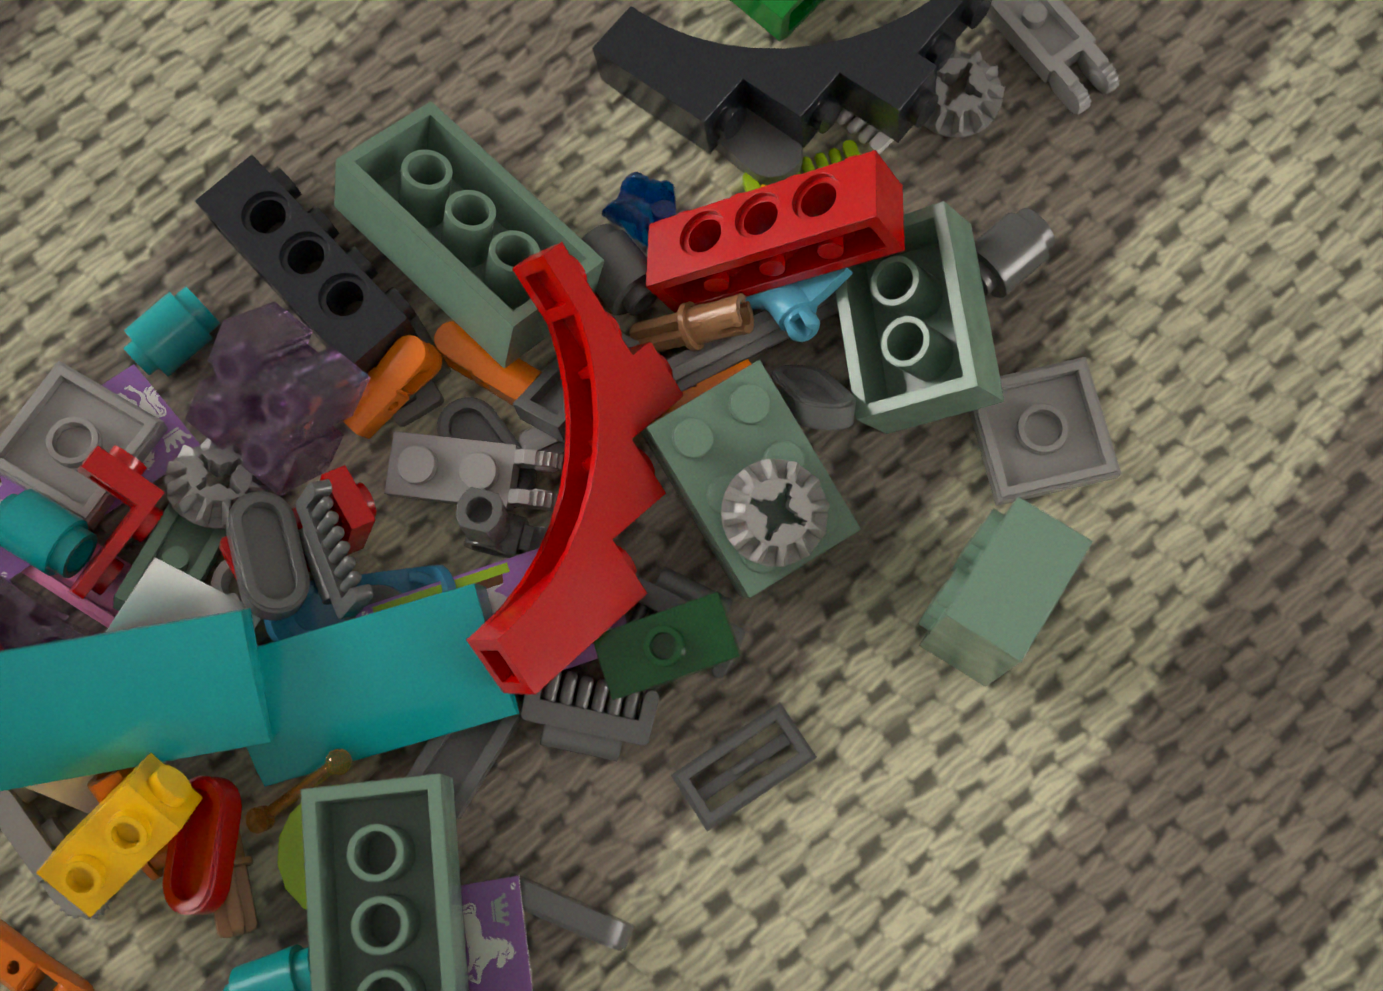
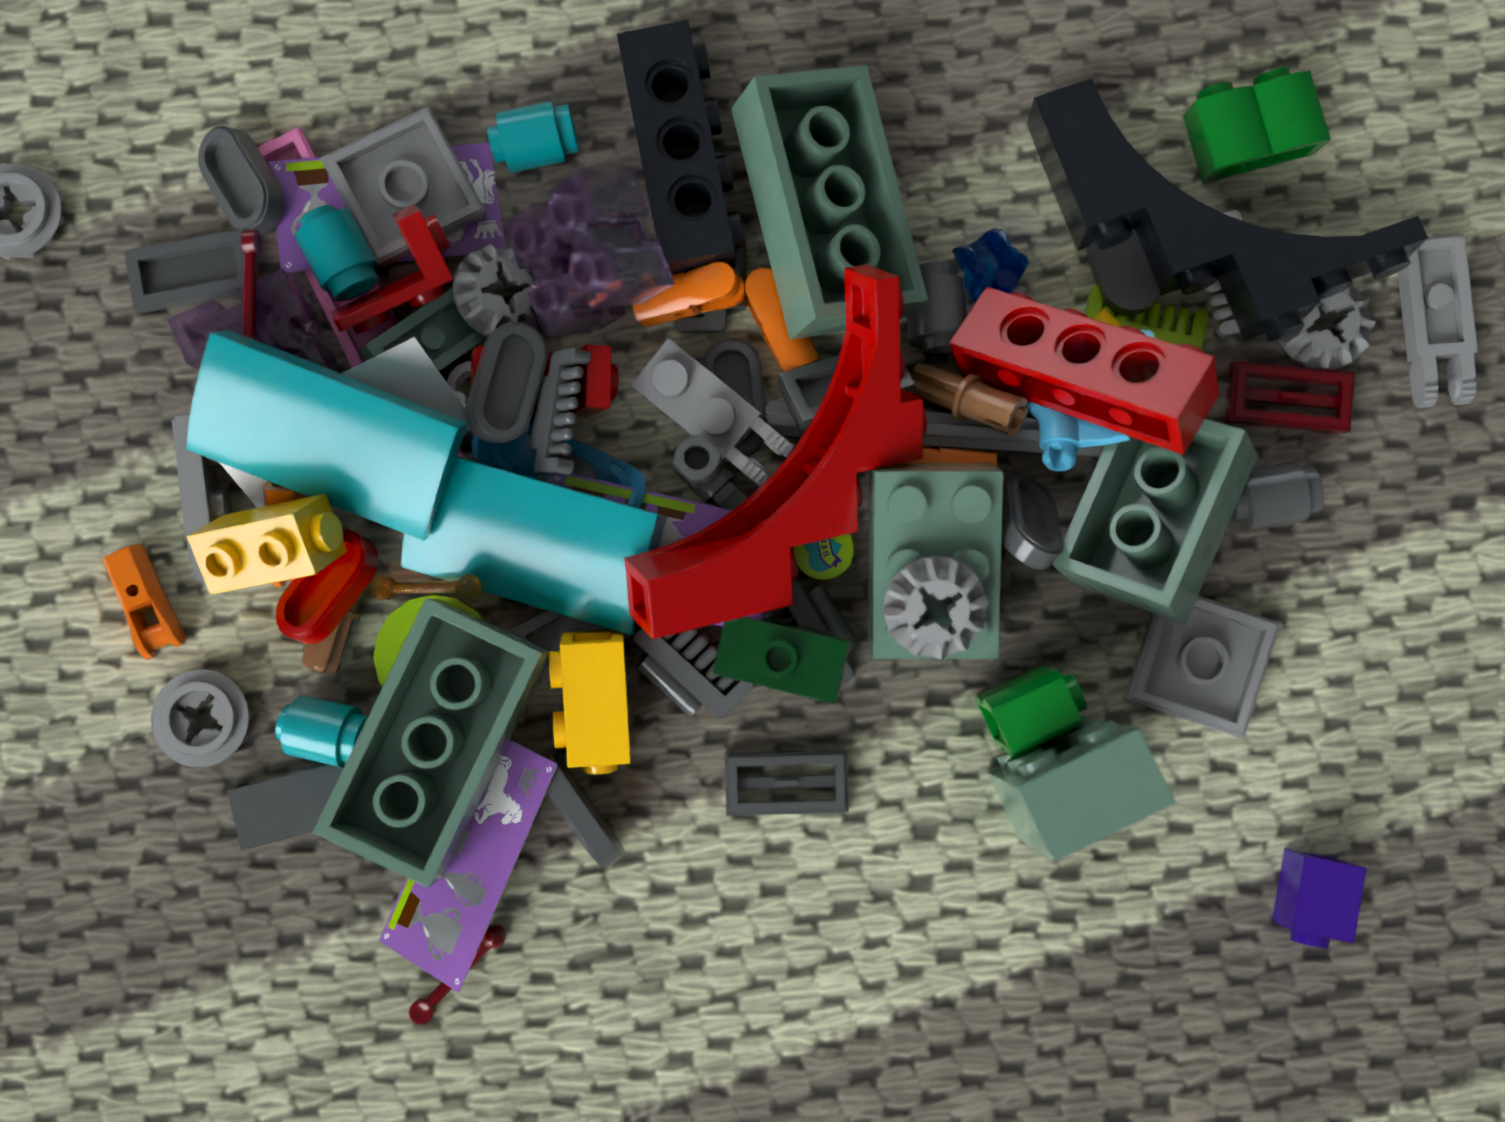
camera: 30 degrees right, 10 degrees up
(520, 796) = (594, 700): none -> yellow brick
(651, 538) = (825, 558): none -> lime tile
(918, 555) = (1031, 709): none -> green brick
(923, 191) = (1239, 393): none -> dark red tile
(1278, 570) = (1318, 898): none -> dark purple brick

